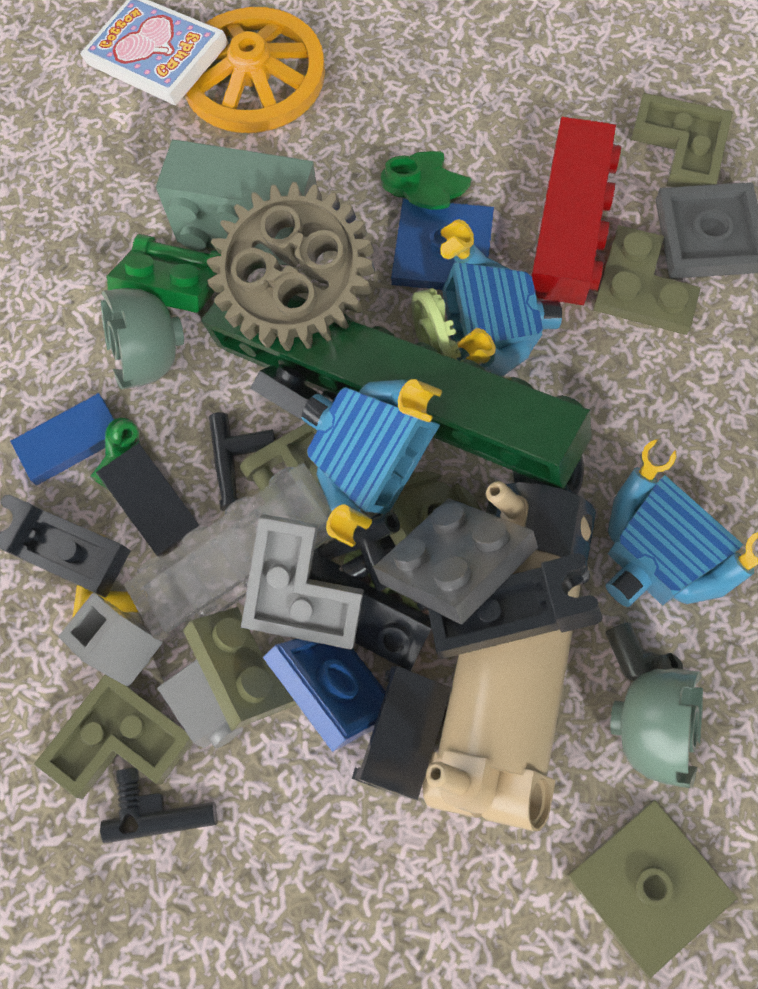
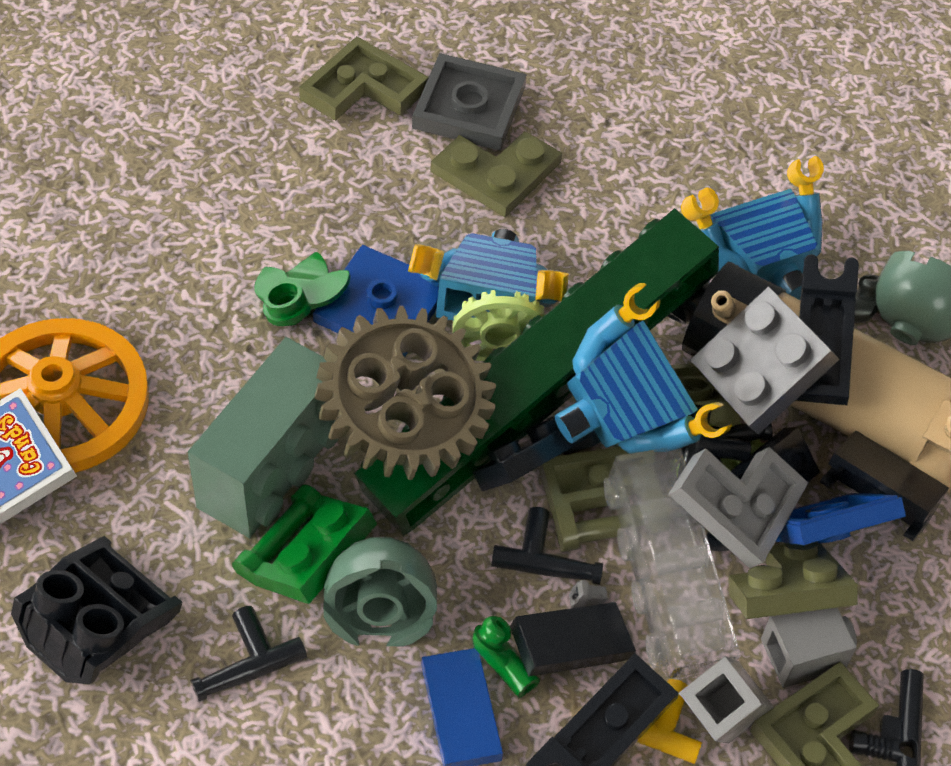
camera: 80 degrees left, 15 degrees down
(71, 288) = (262, 657): none -> black piece
(79, 162) = (90, 612): none -> black slope
(202, 499) = (586, 594): none -> light grey piece
(573, 211) = (400, 183): red brick -> none

